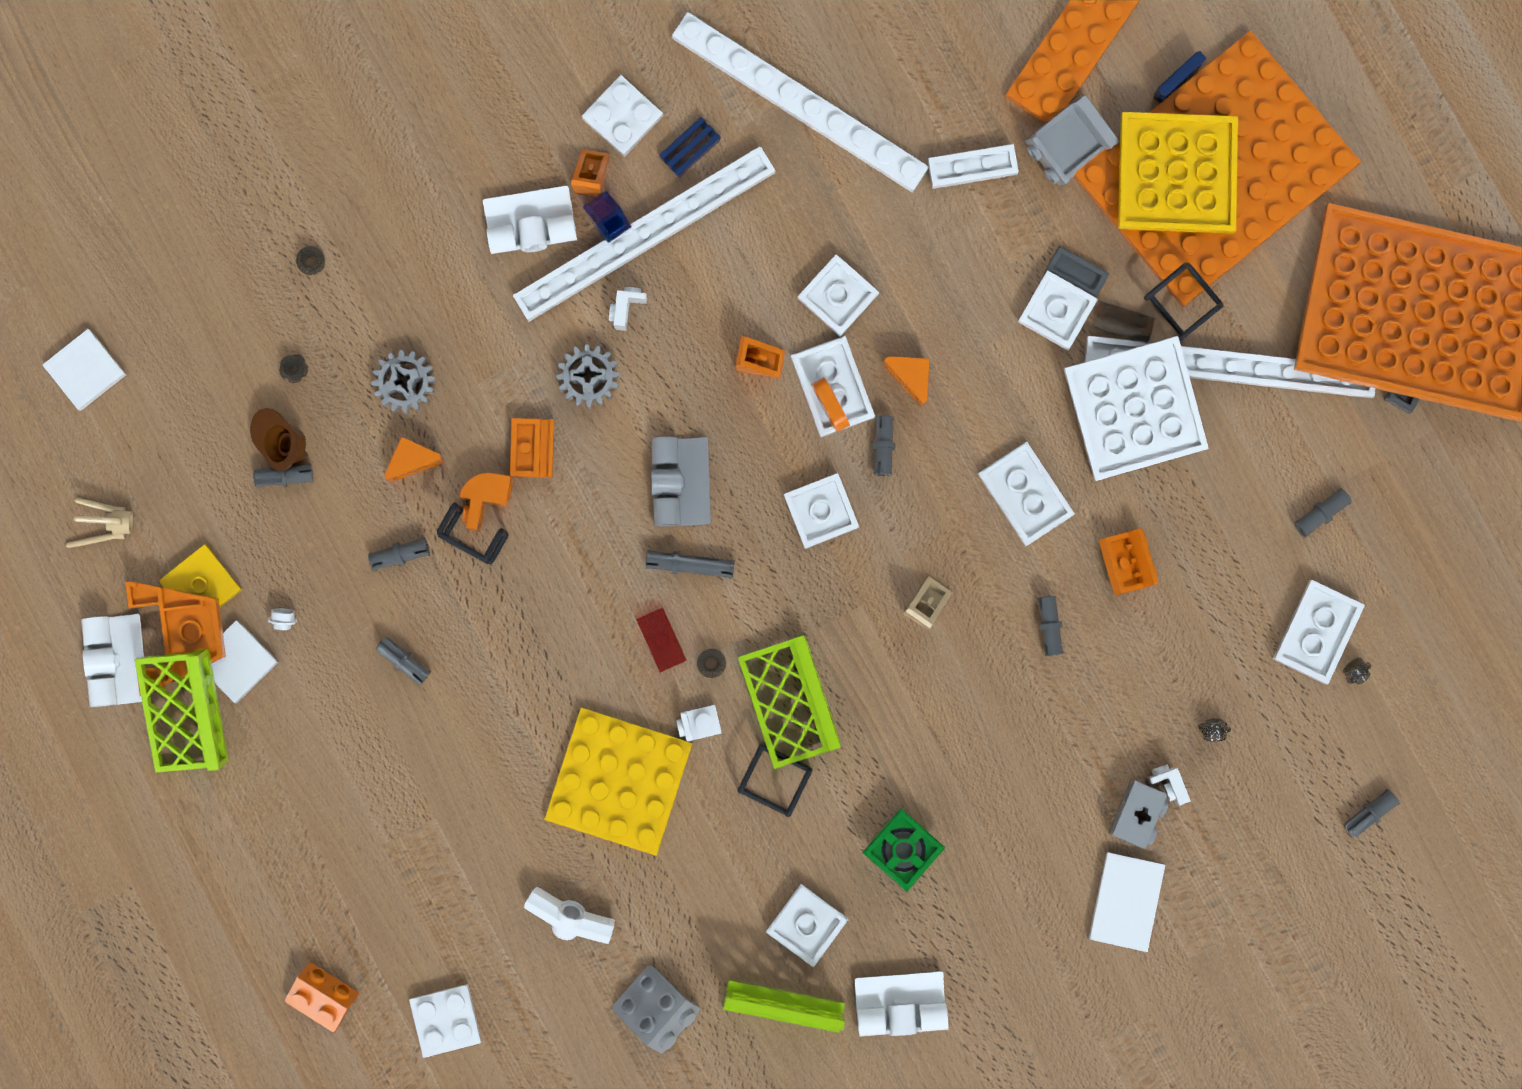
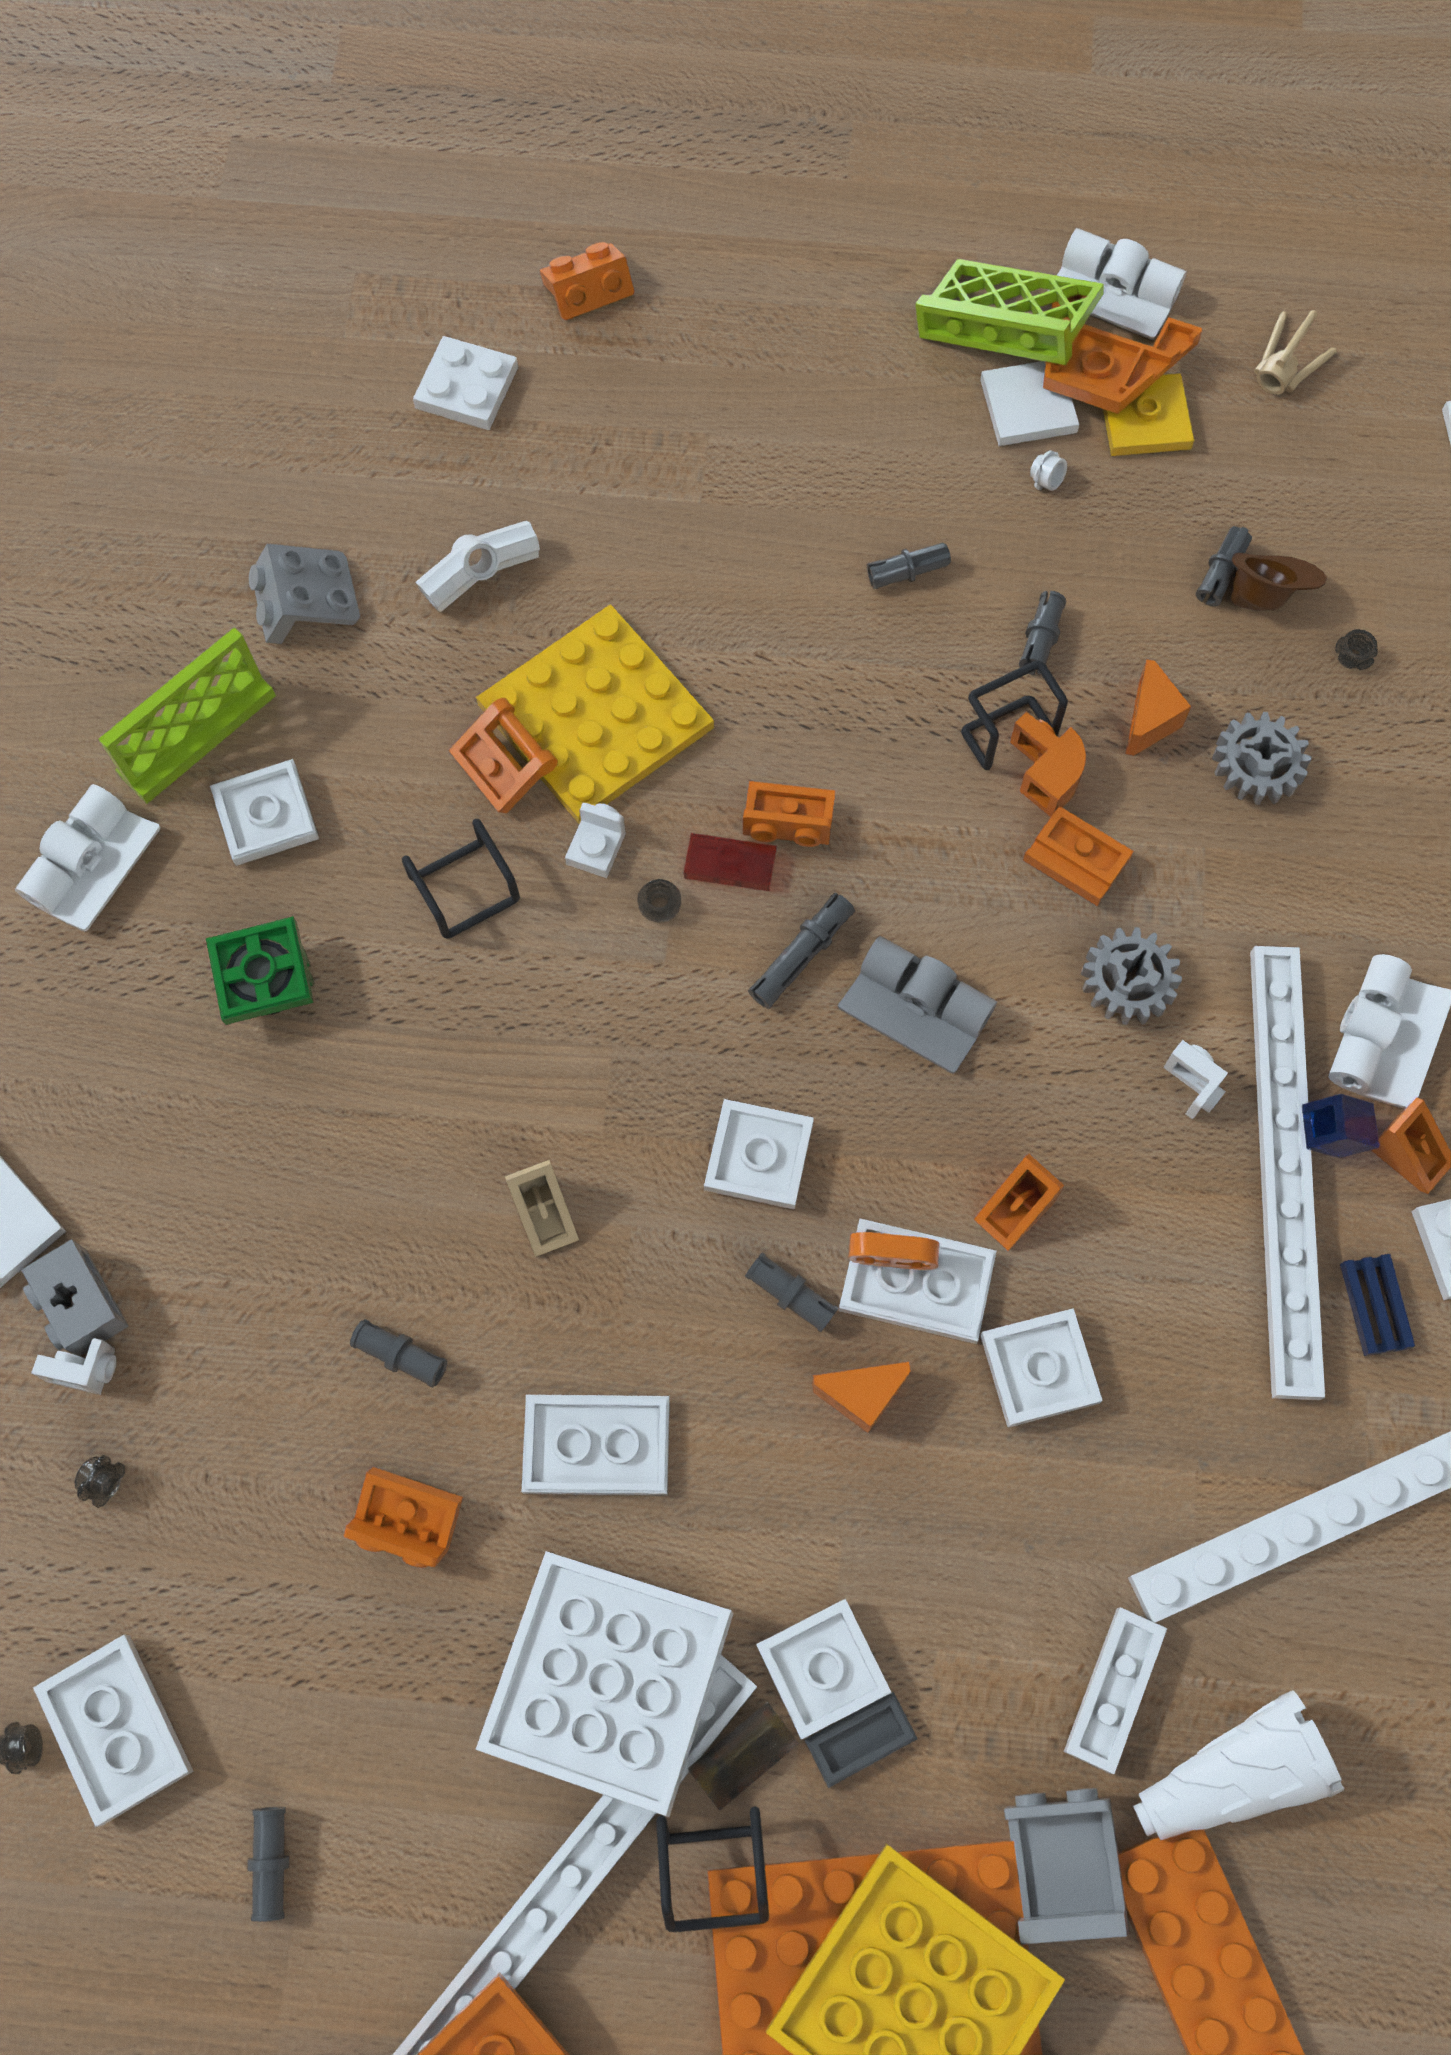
camera: 130 degrees right, 15 degrees down
(612, 625) = (788, 813): none -> orange bracket
(693, 814) = (491, 763): none -> orange plate
(814, 693) = (531, 996): lime fence -> none
(965, 78) = (1245, 1773): none -> white cone

